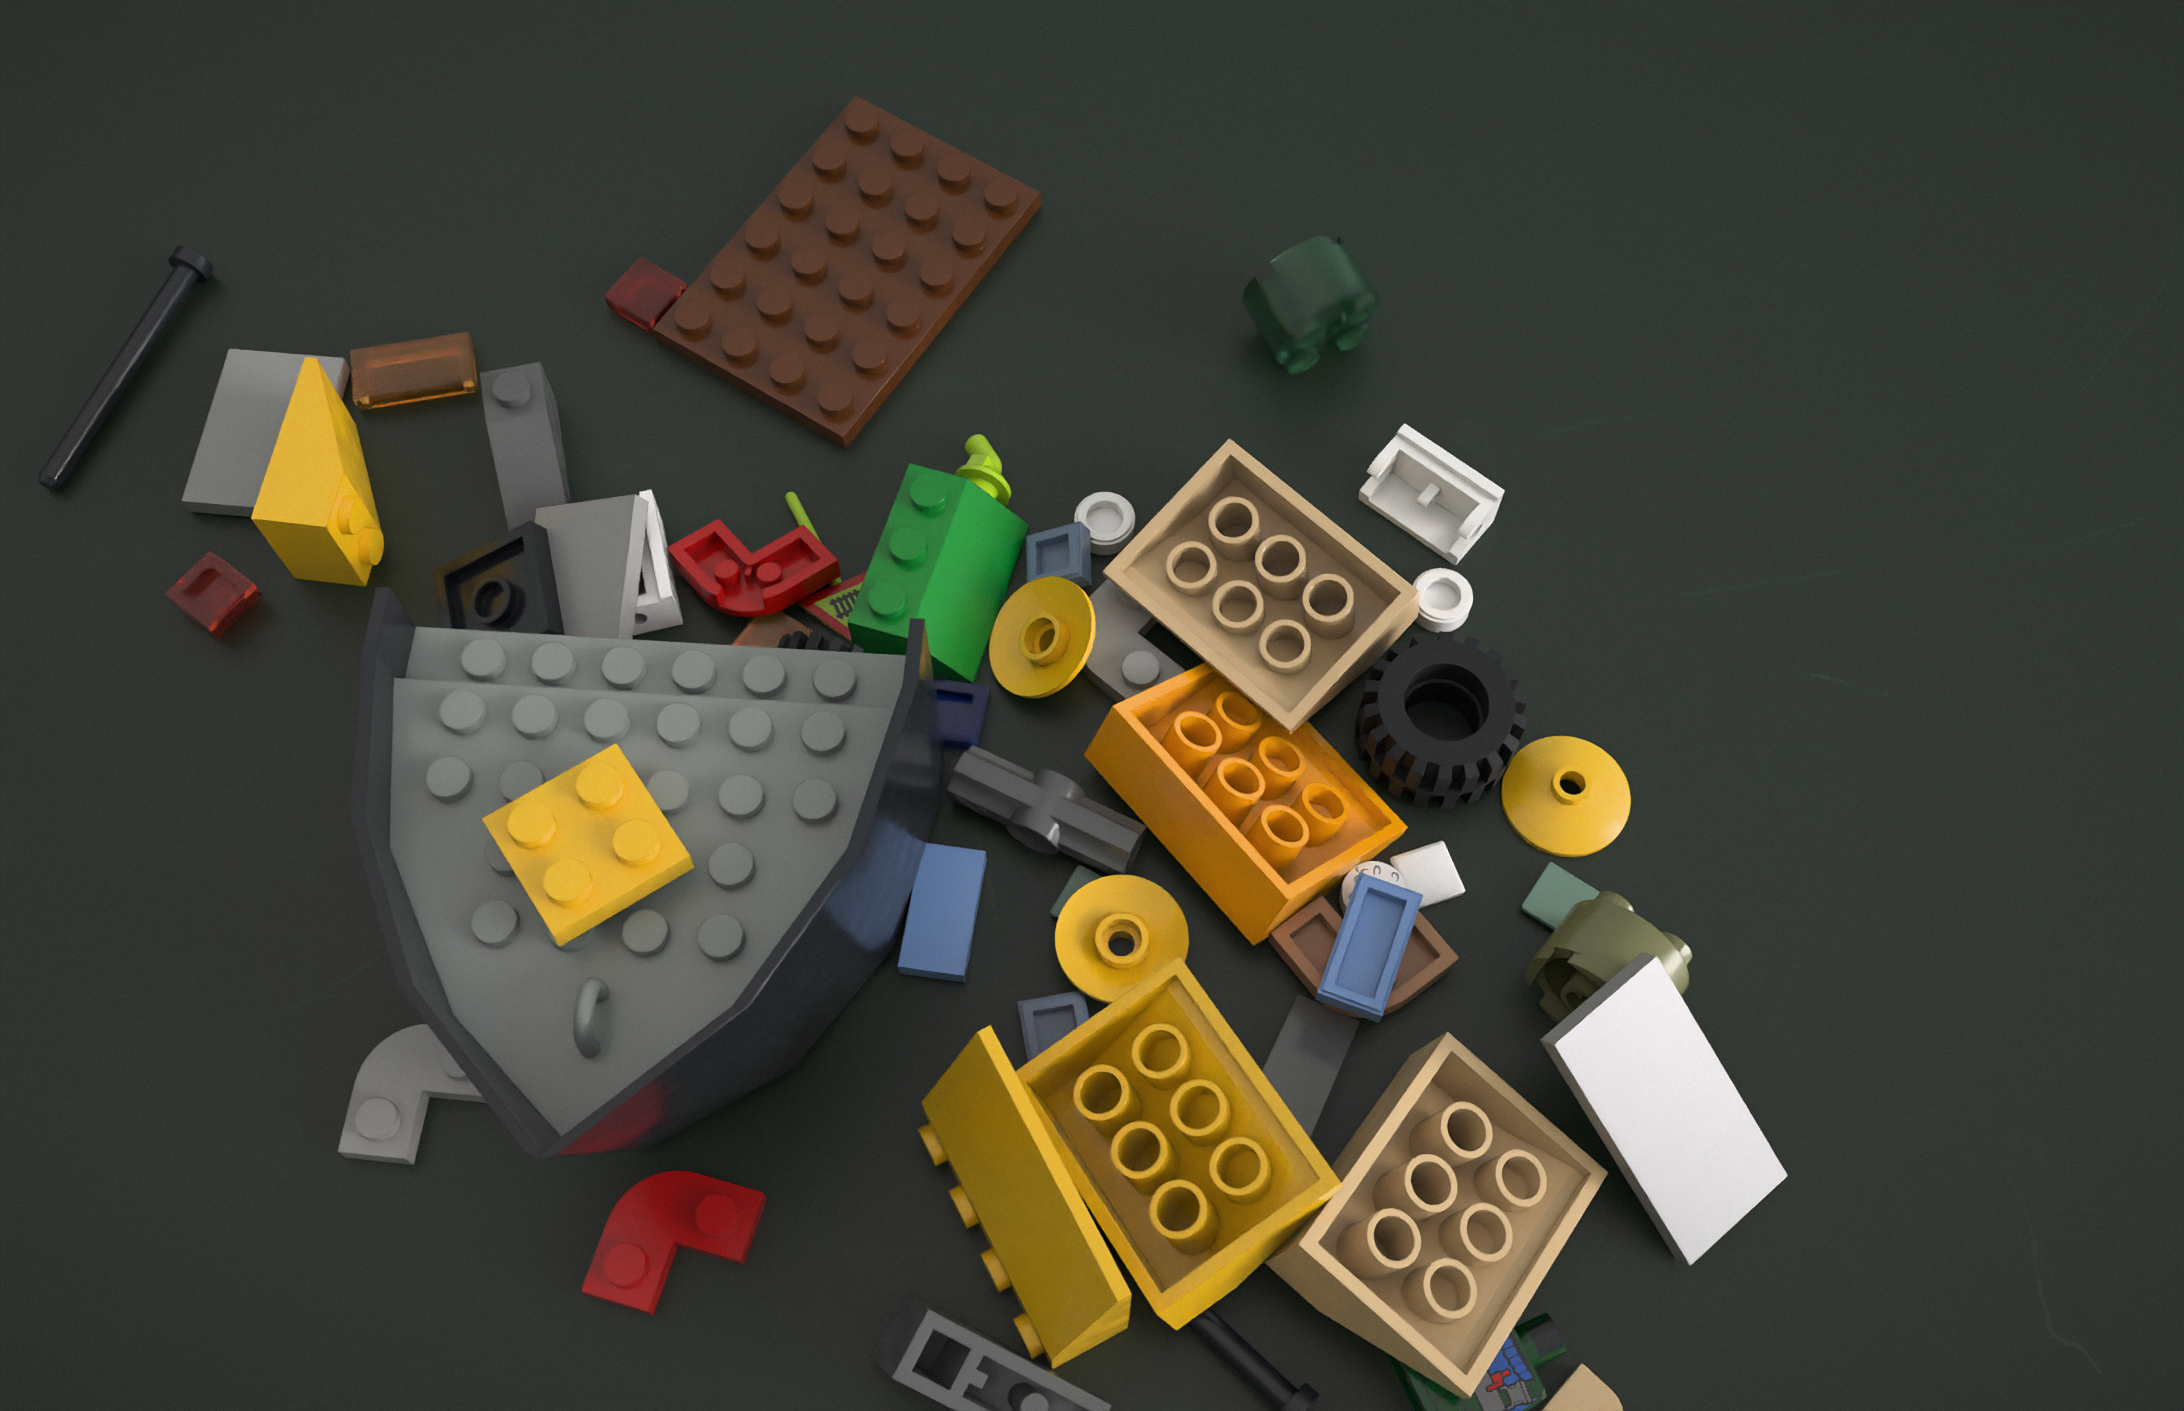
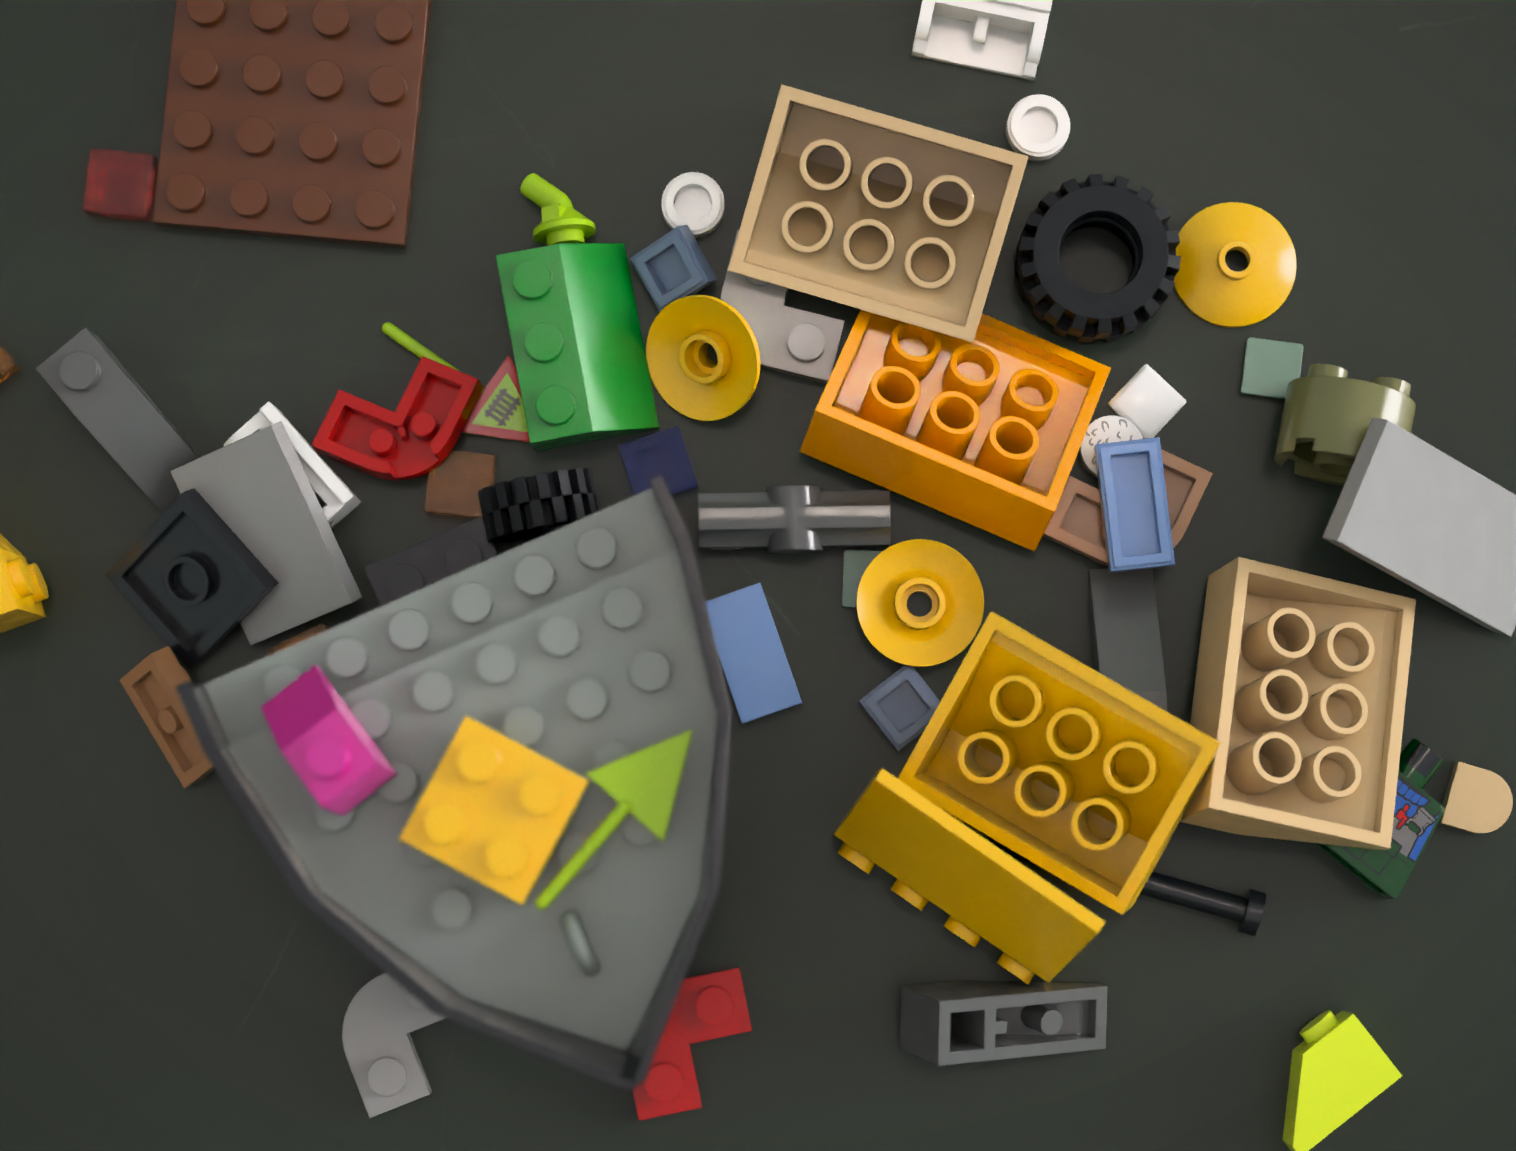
camera: 25 degrees left, 20 degrees up
(475, 714) = (326, 743): none -> dark pink slope
(739, 892) = (641, 785): none -> lime piece

